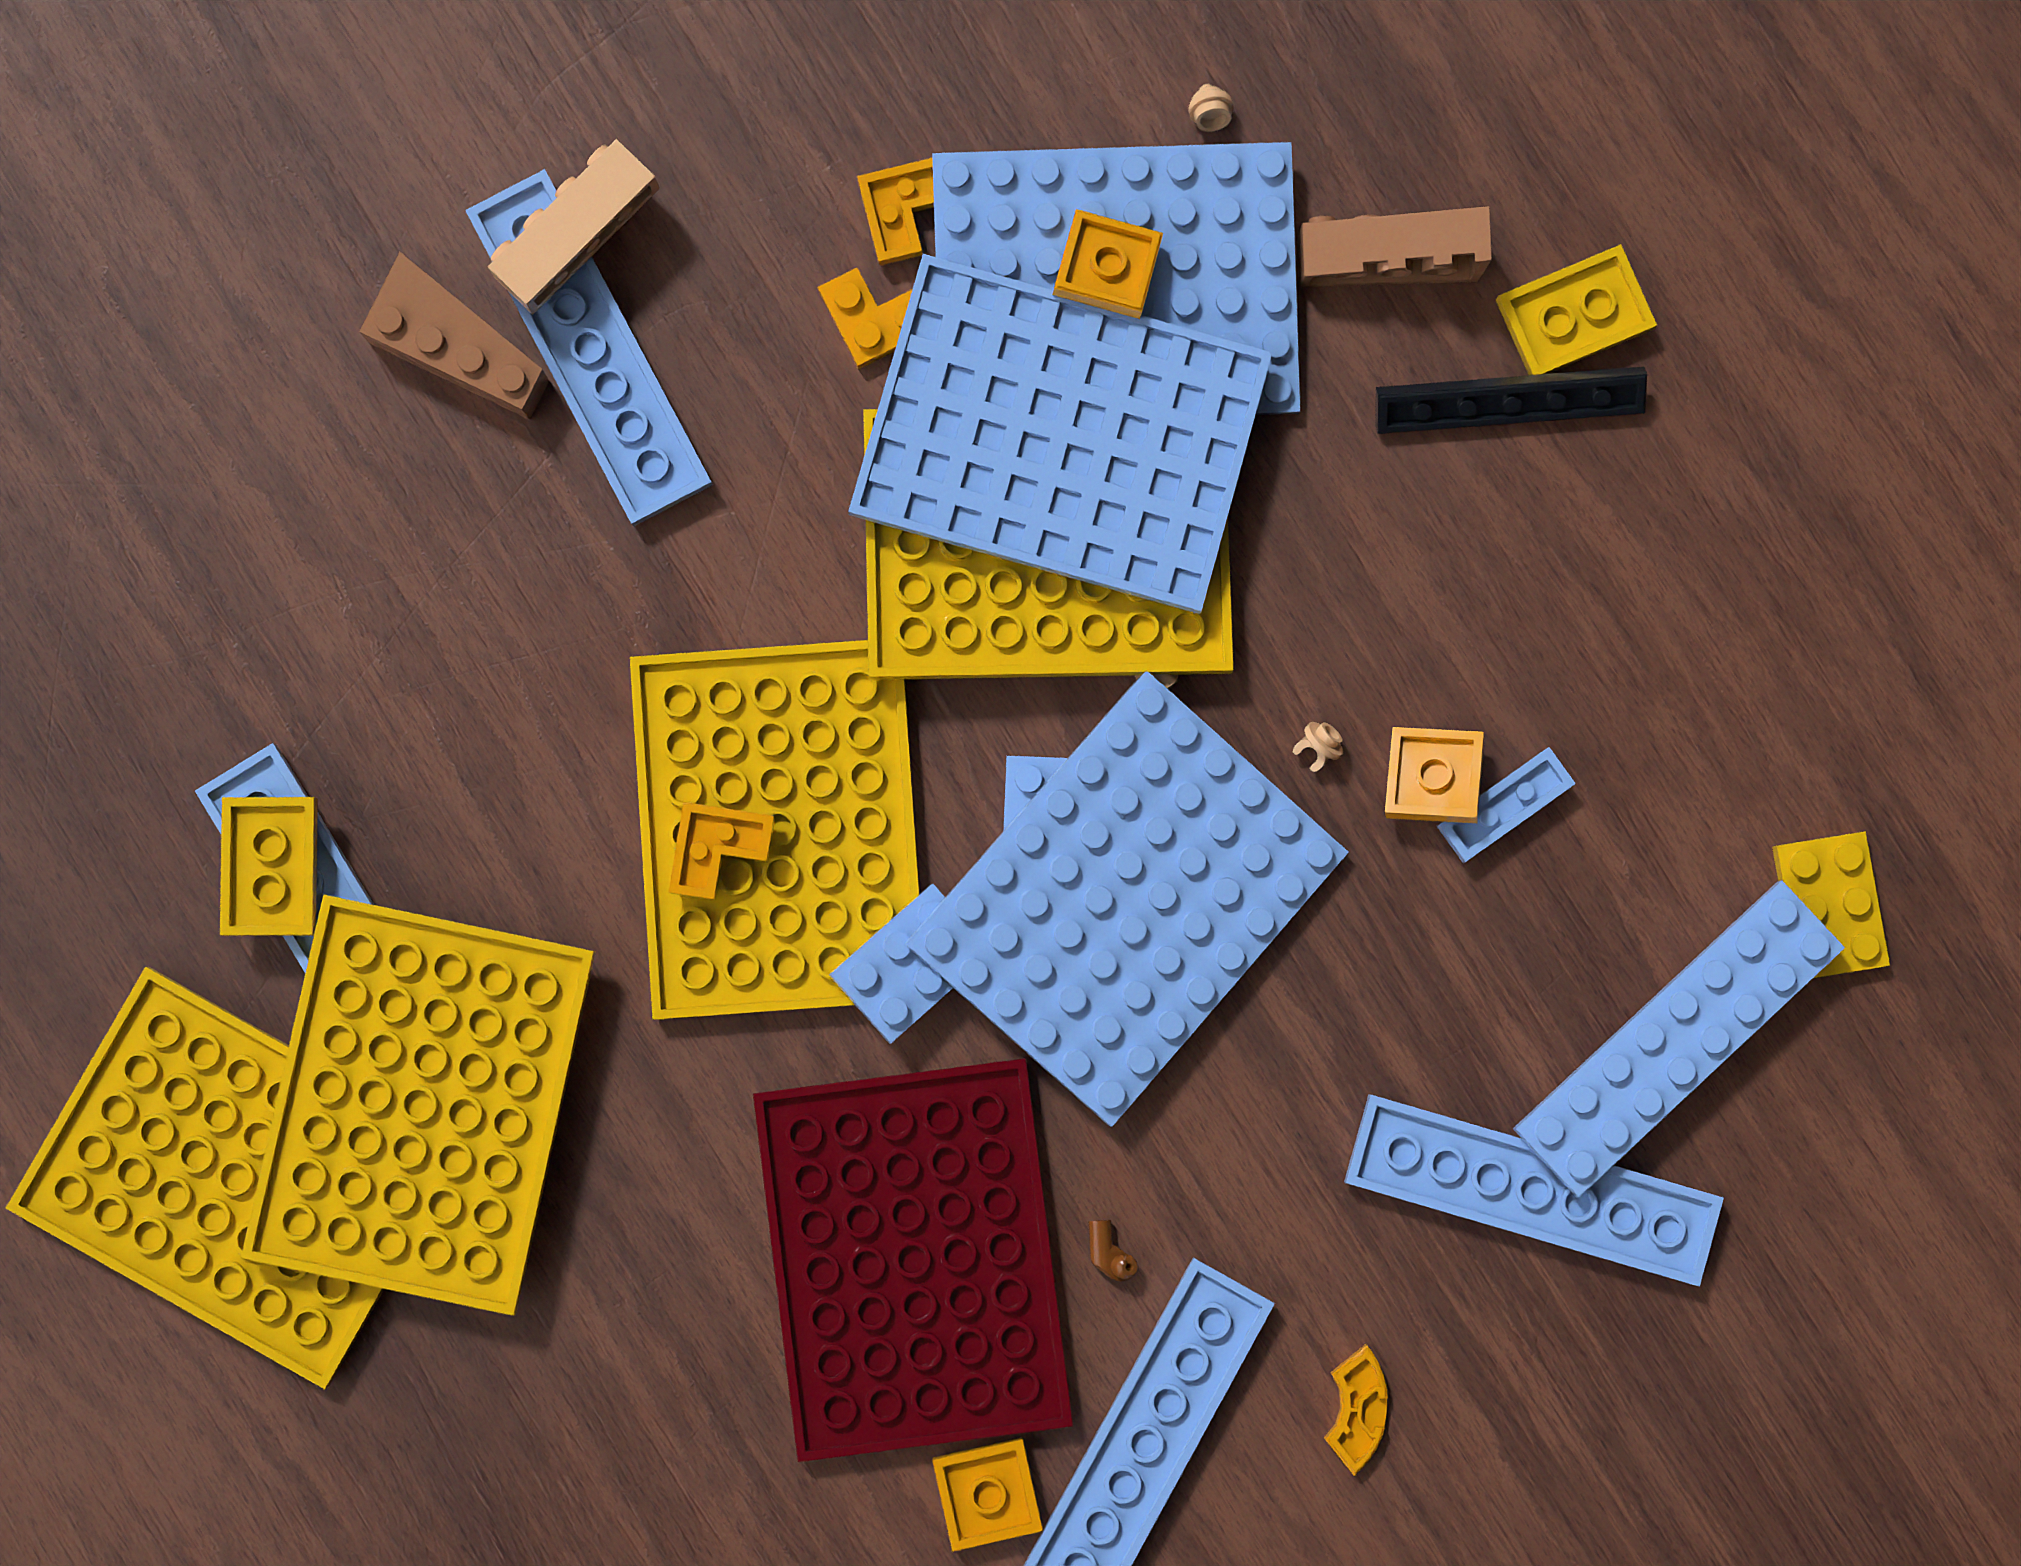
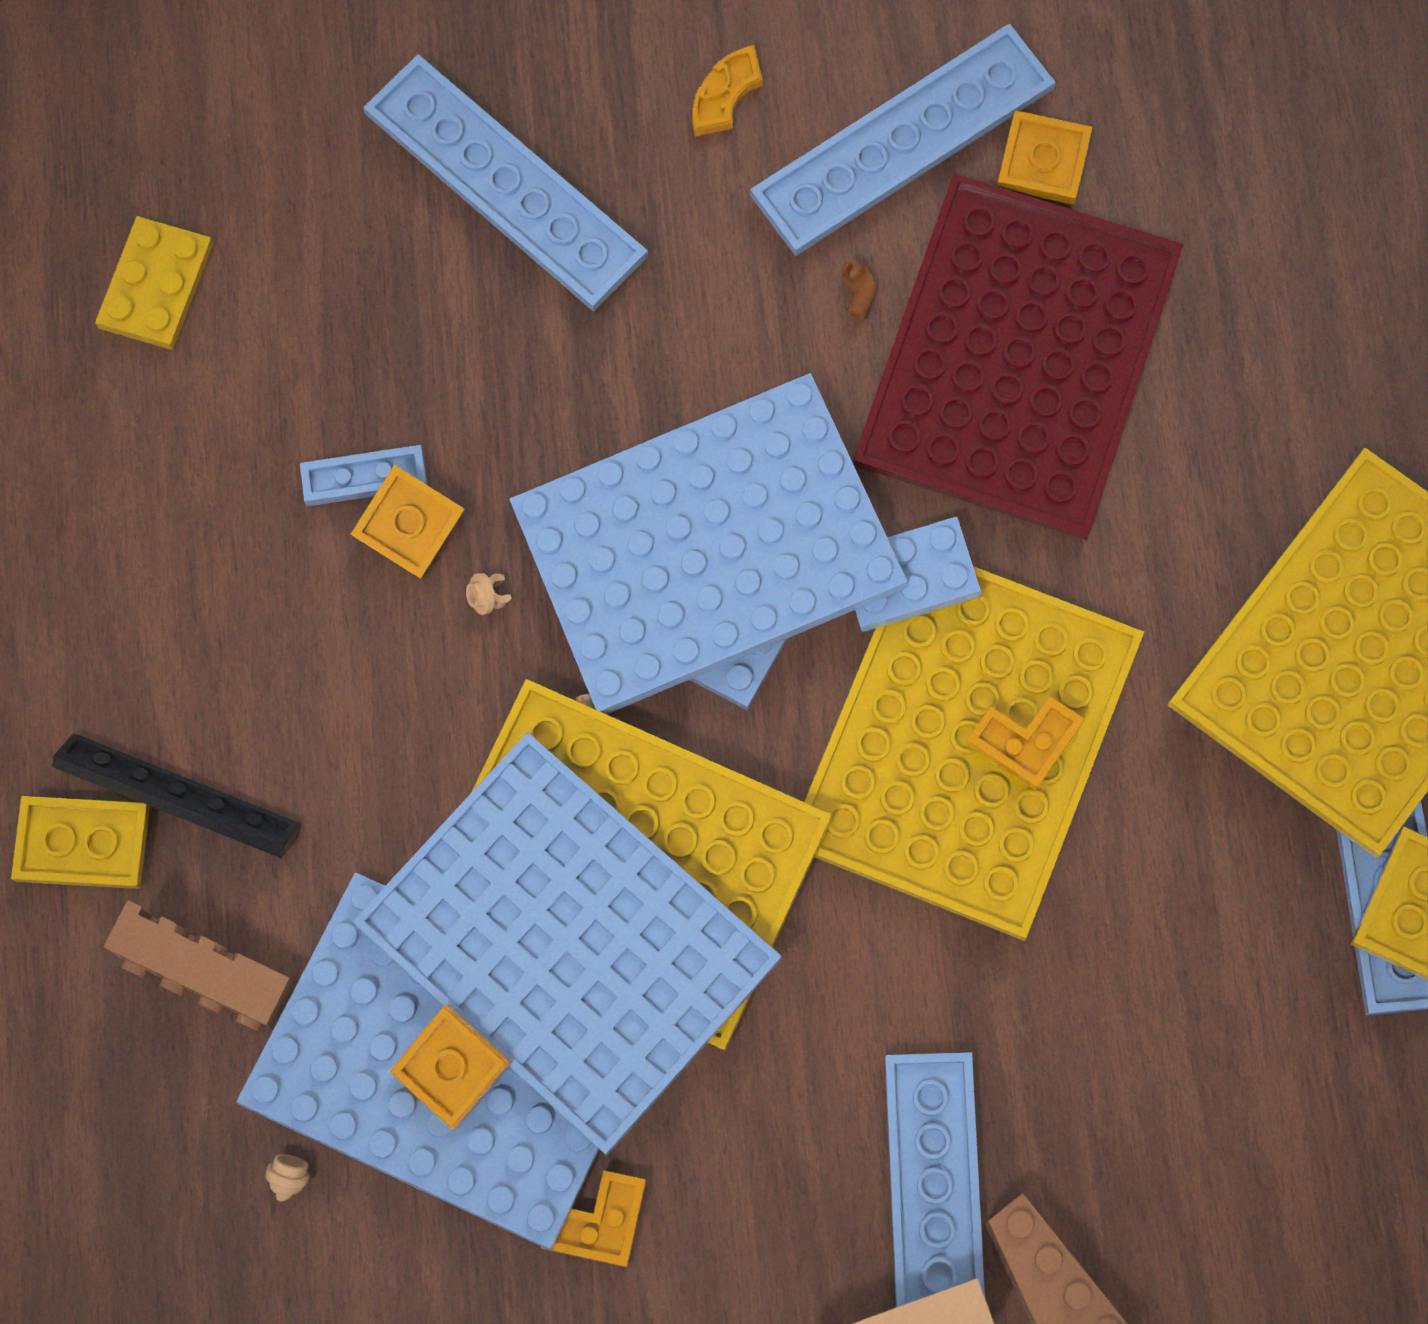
camera: 145 degrees left, 10 degrees down
(865, 328) = (686, 1131): light orange plate -> none
(1678, 1038) = (329, 233): light blue plate -> none

